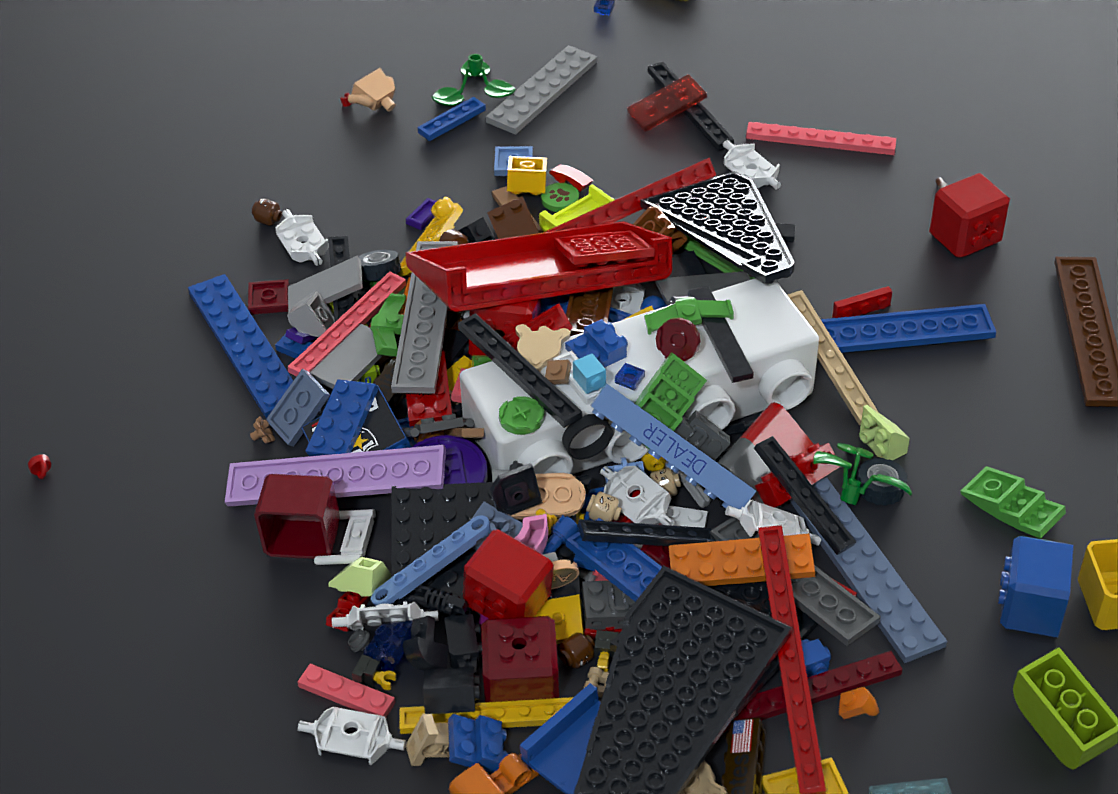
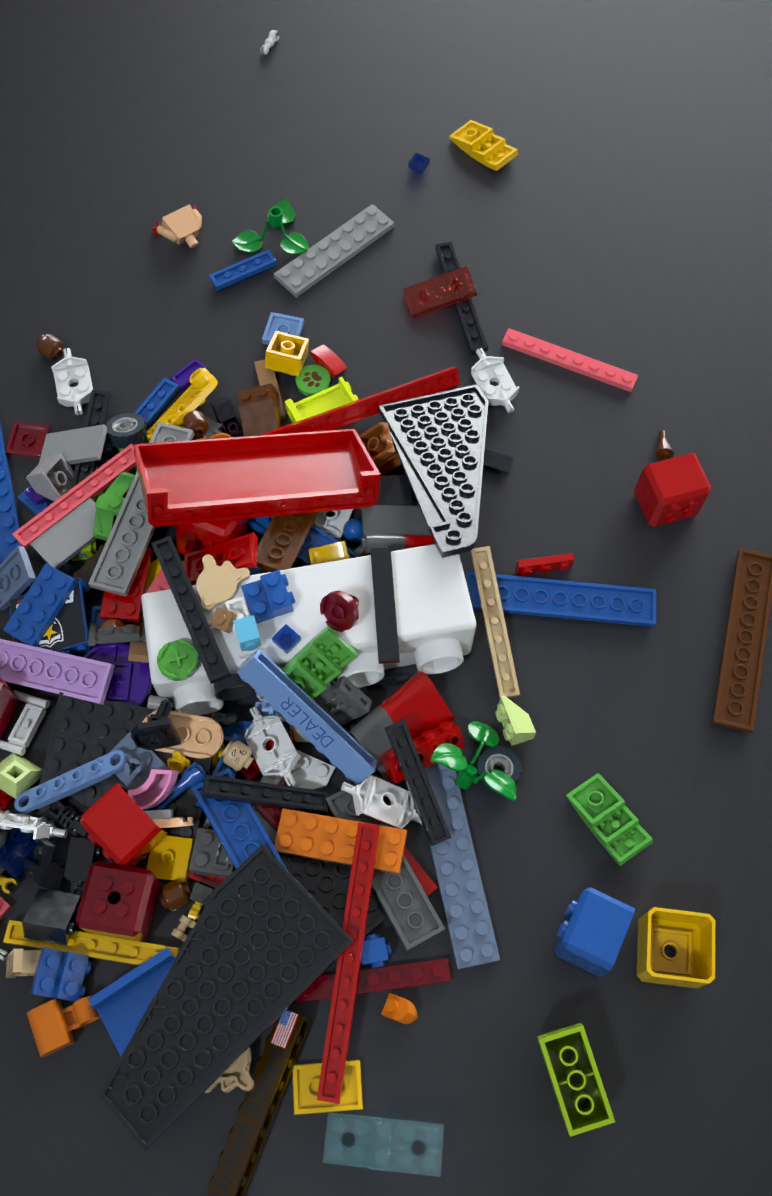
camera: 10 degrees right, 20 degrees up
(401, 236) = (157, 400): none -> blue plate
(603, 248) = (320, 466): red plate -> none
(689, 309) = (360, 576): bright green plate -> none

